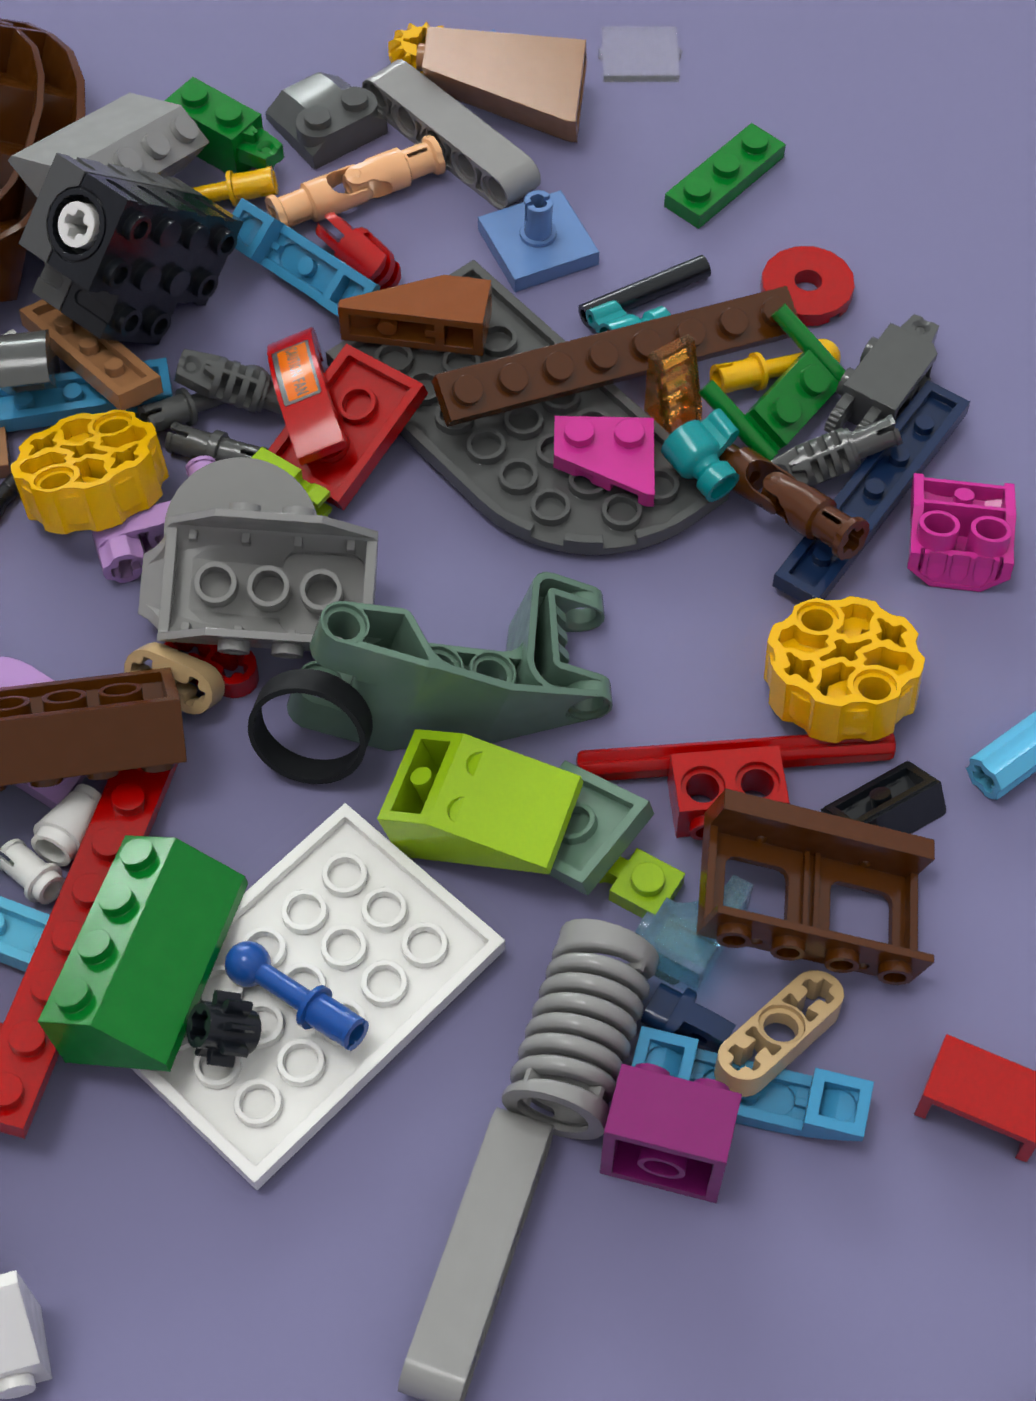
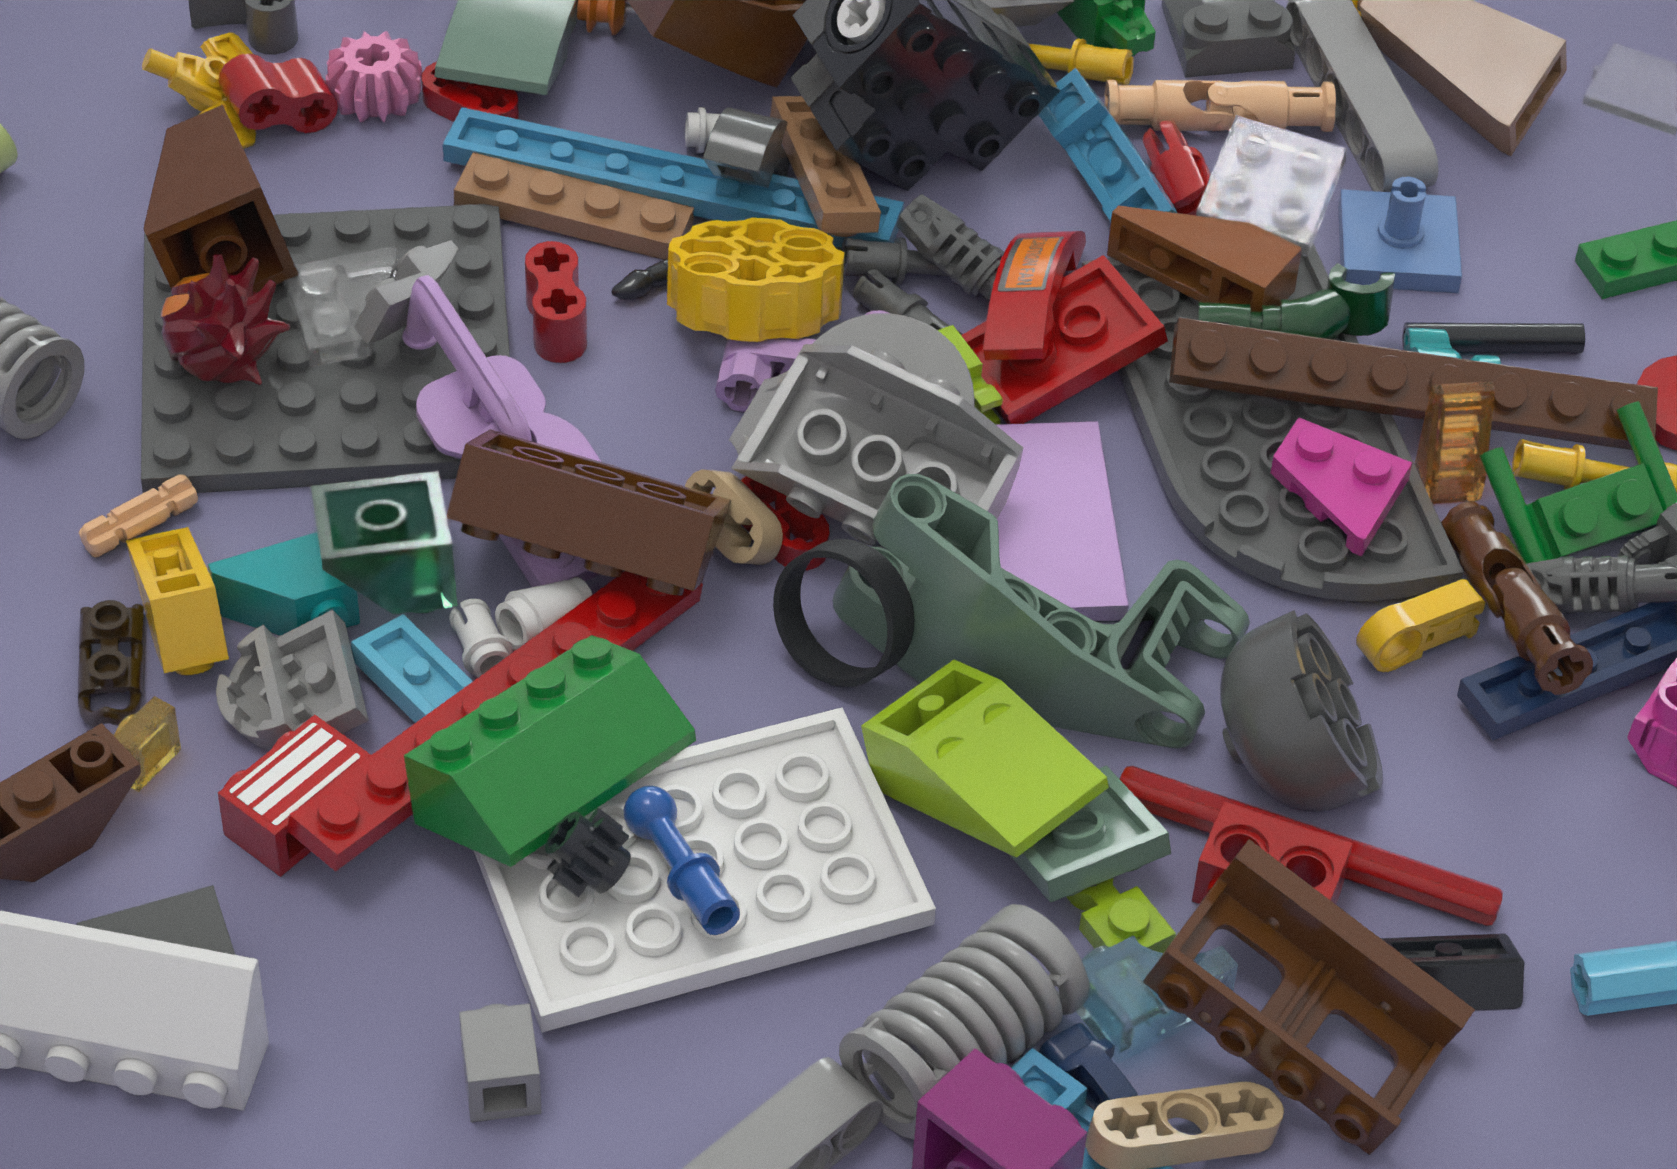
camera: 25 degrees right, 10 degrees down
(241, 1236) = (500, 1062): none -> light grey brick
(424, 569) = (1062, 521): none -> lavender tile
(435, 233) = (1273, 181): none -> clear plate
(522, 331) = (1322, 314): none -> dark green piece
(681, 660) = (1297, 717): none -> dark grey cylinder
(696, 450) = (1439, 513): teal piece -> none
(712, 554) = (1408, 628): none -> yellow piece
(843, 669) = (1479, 802): yellow connector -> none

